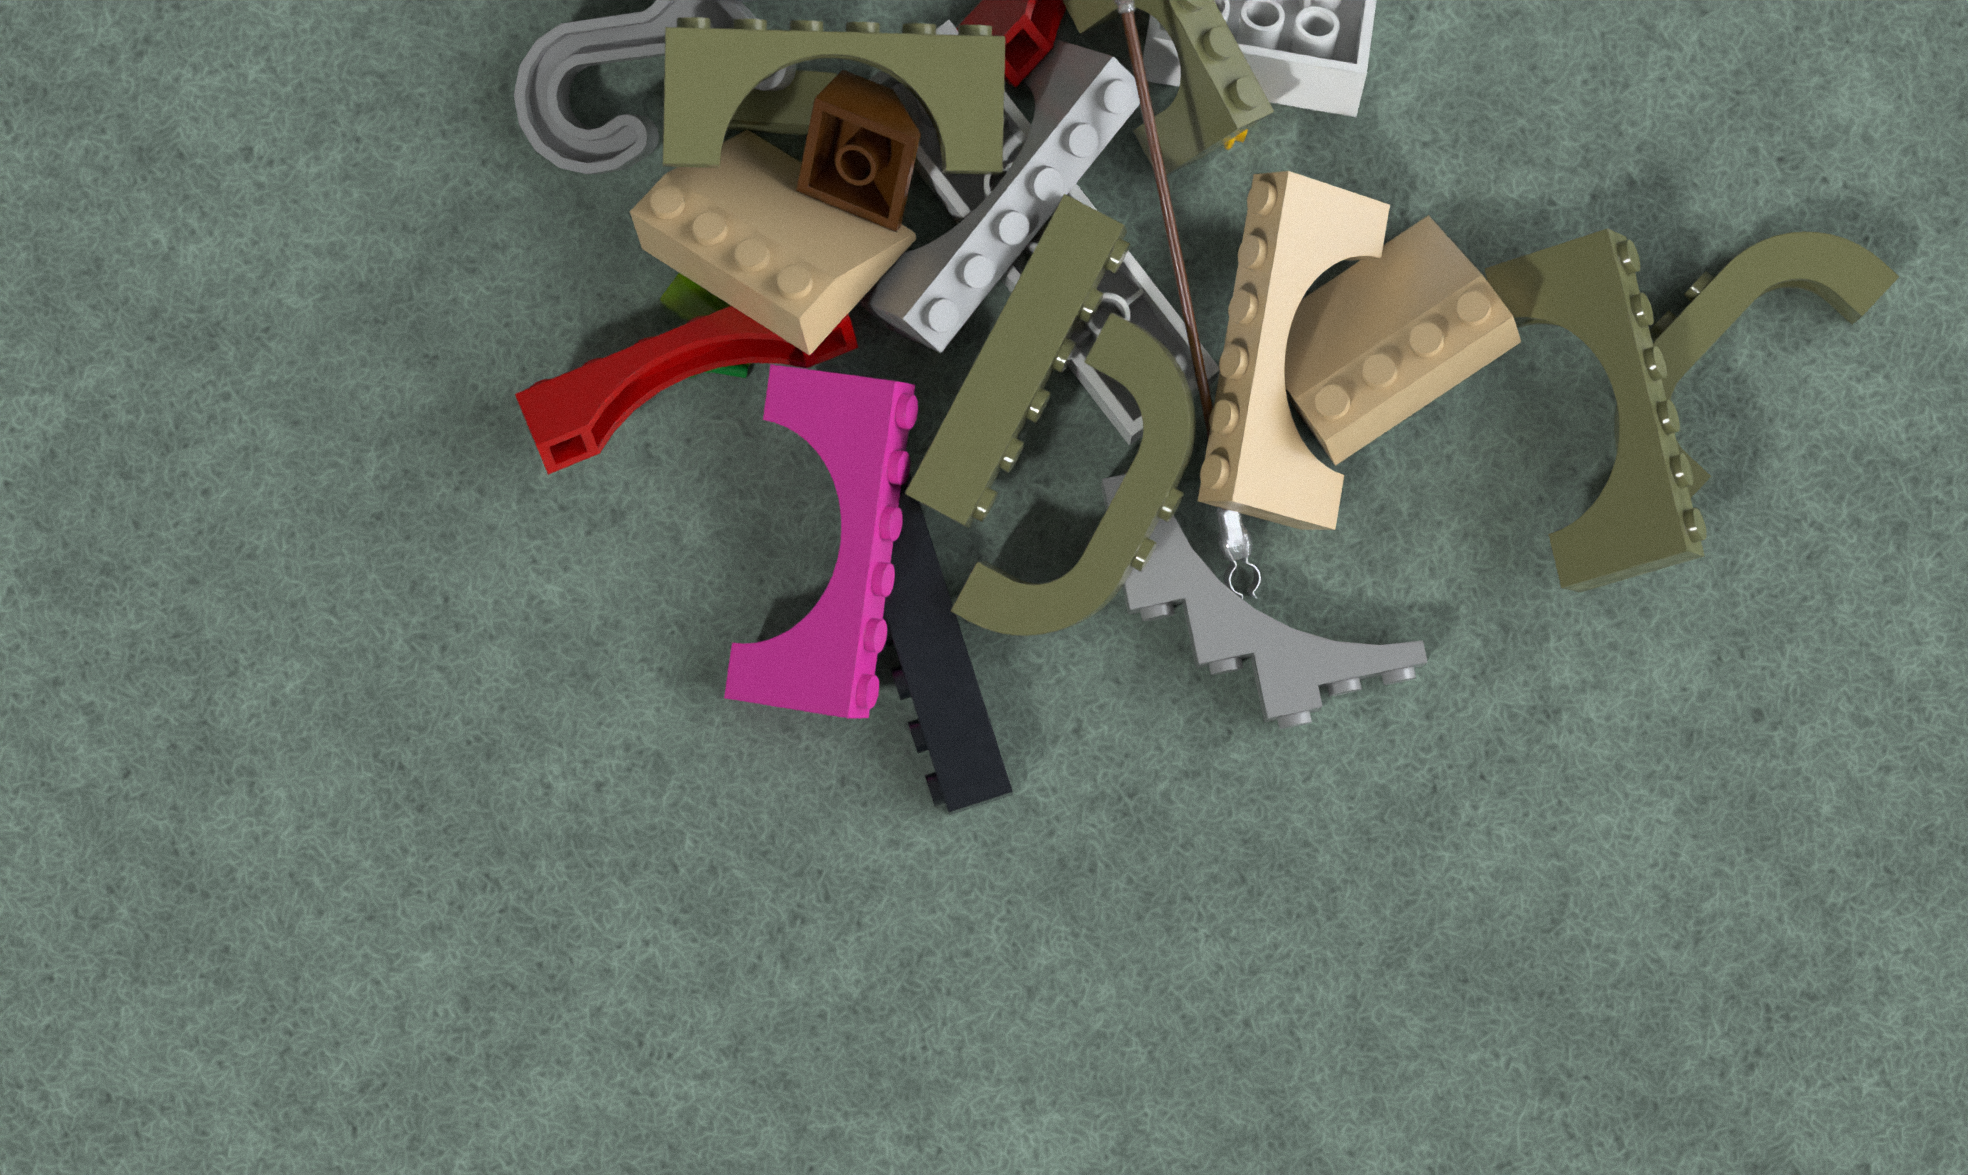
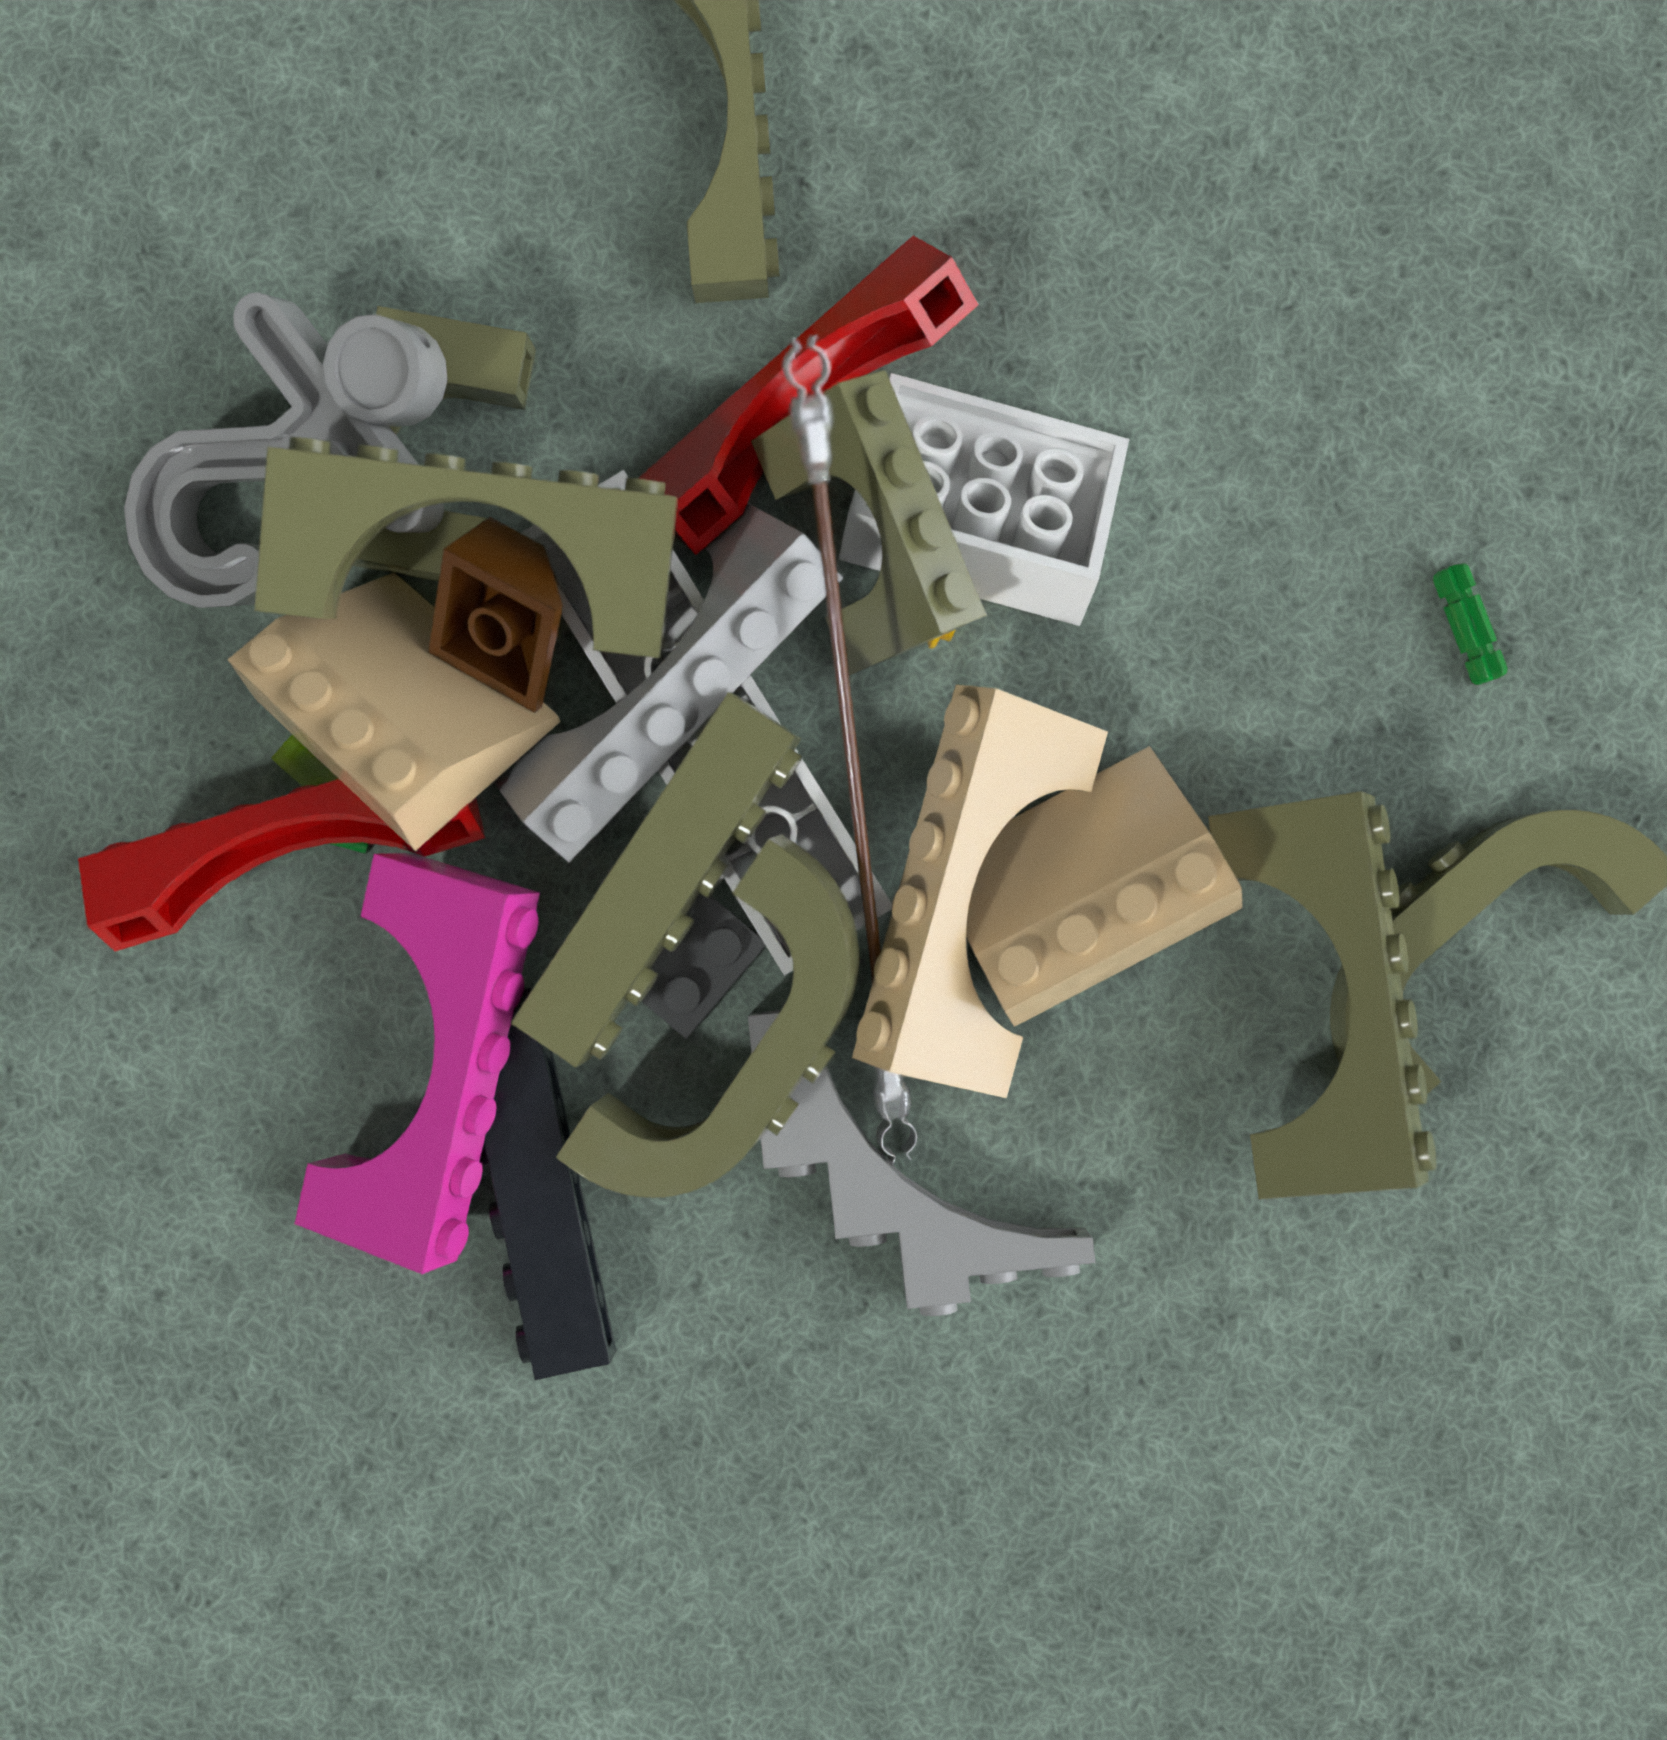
camera: 10 degrees right, 5 degrees up
(1054, 447) = (701, 966): none -> dark grey plate
(1699, 83) = (1470, 623): none -> green axle

